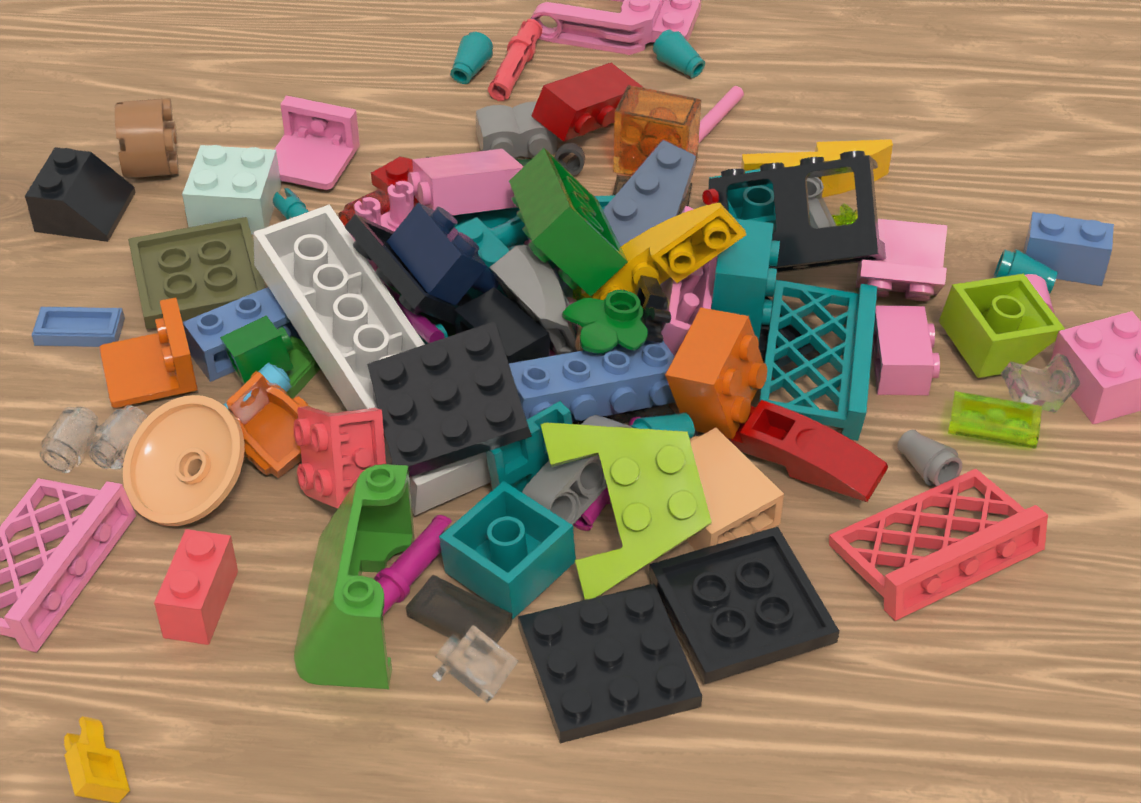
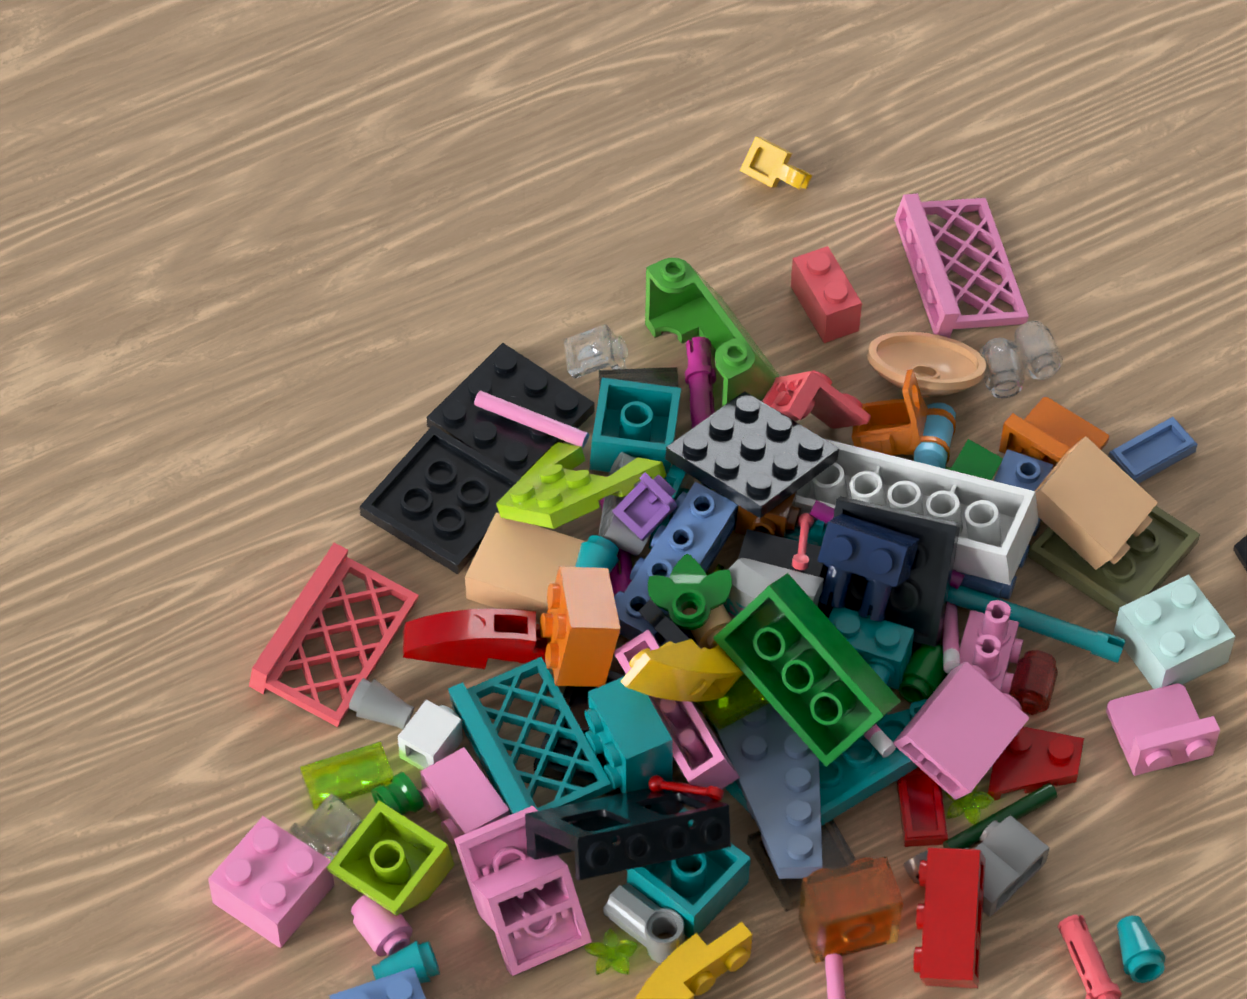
camera: 145 degrees right, 10 degrees up
(198, 259) = (1093, 504): none -> light nougat brick
(494, 292) = (801, 560): none -> coral hinge
(584, 402) = (646, 506): none -> medium lavender bracket
(603, 614) = (531, 419): none -> bright pink bar
(900, 406) = (430, 735): none -> white brick
(960, 377) = (399, 795): none -> green wheel

